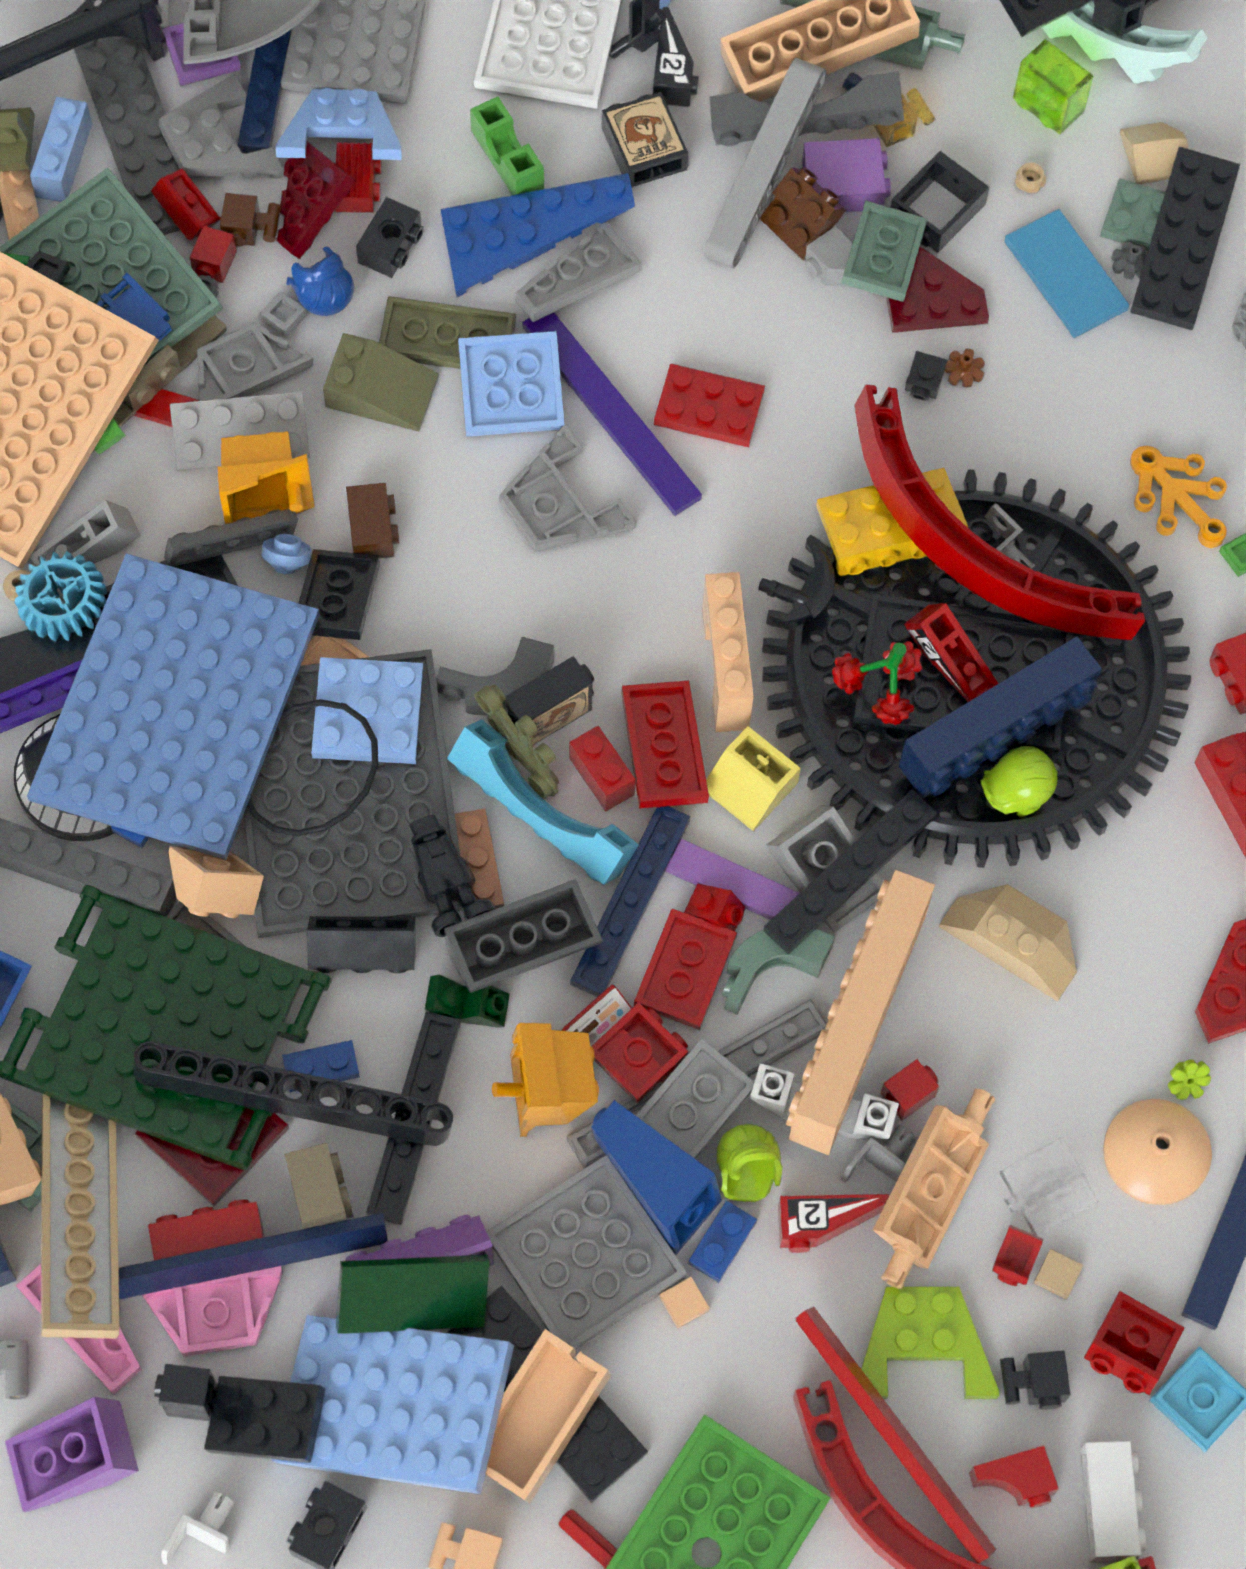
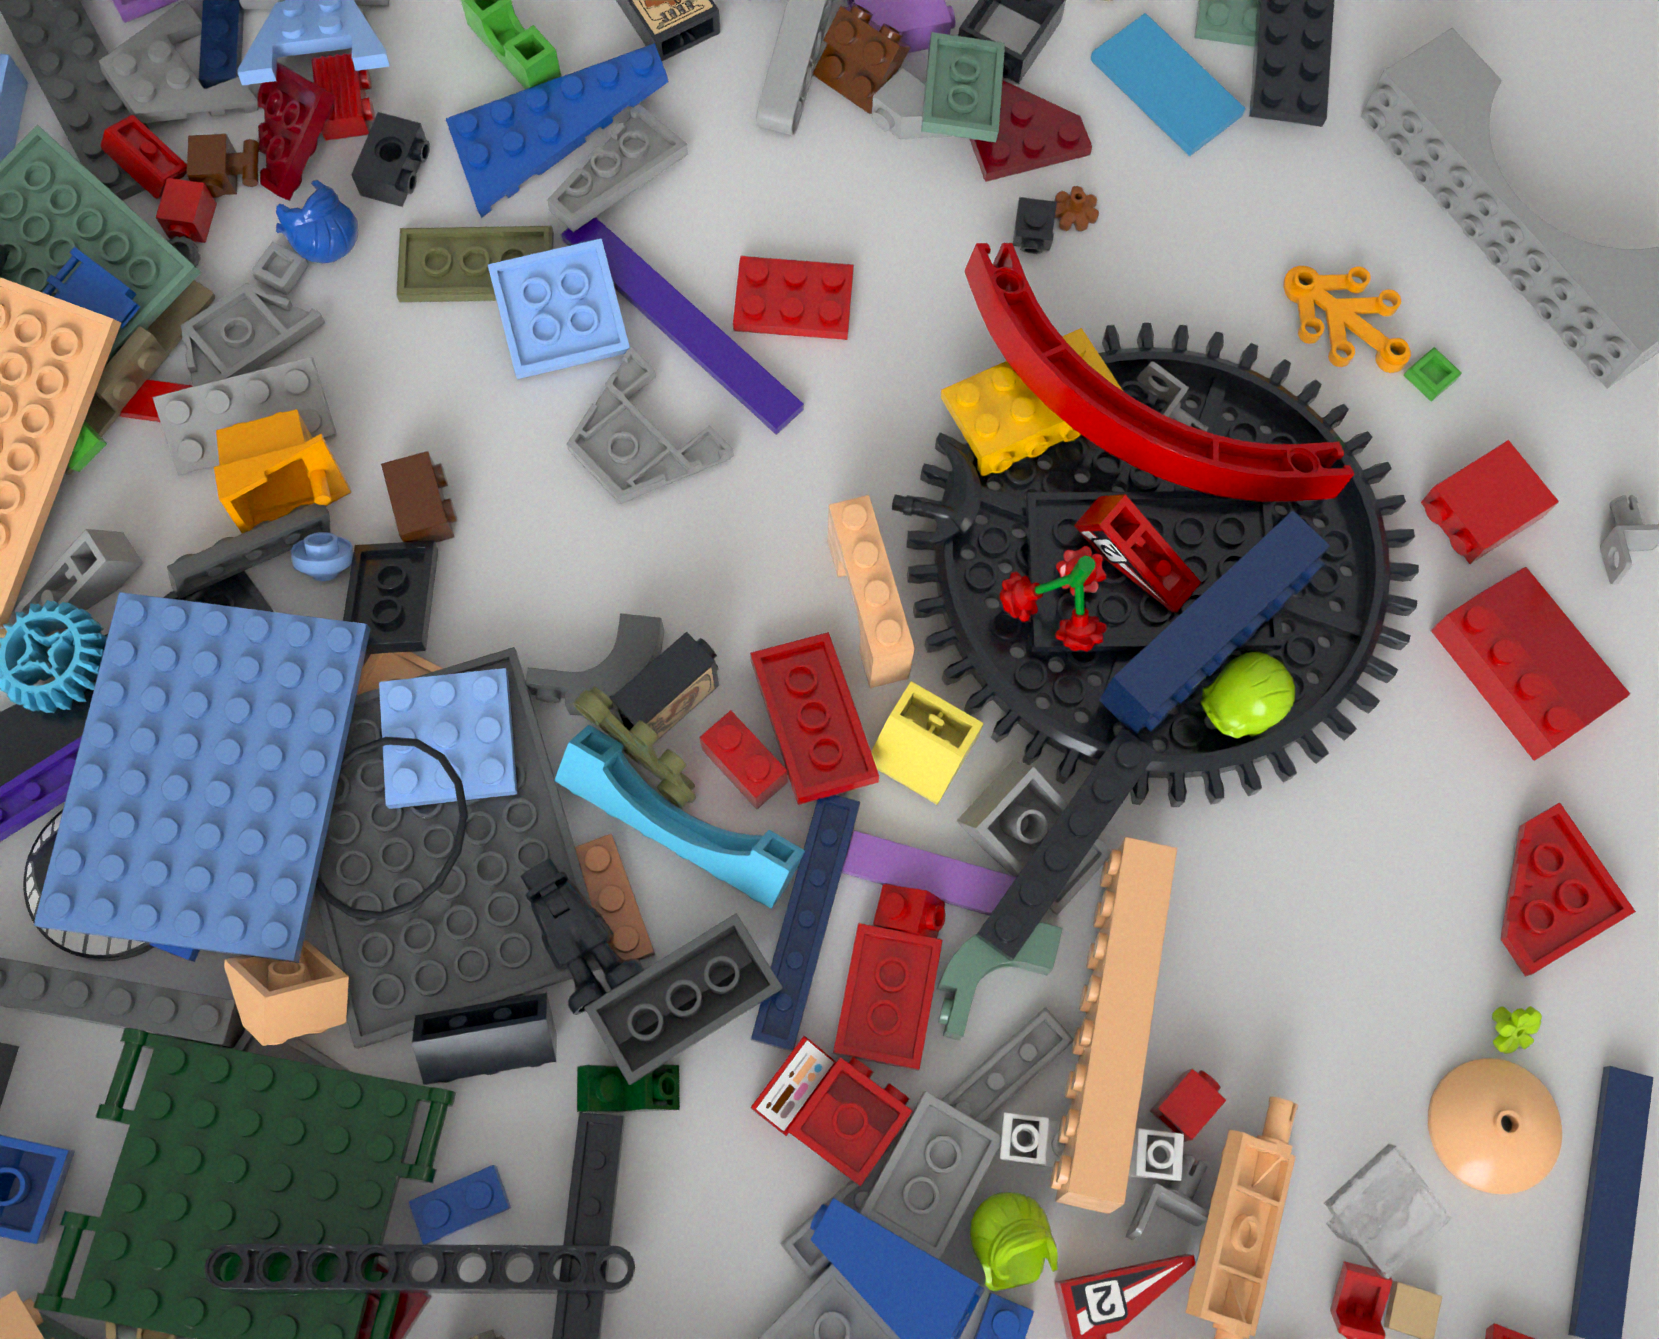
camera: 10 degrees left, 5 degrees up
(378, 383) = (402, 332): olive slope -> none
(549, 1075) = (749, 1181): light orange piece -> none
(1015, 936) = (1272, 882): tan wedge -> none
(1129, 260) = (1234, 58): dark grey plant -> none

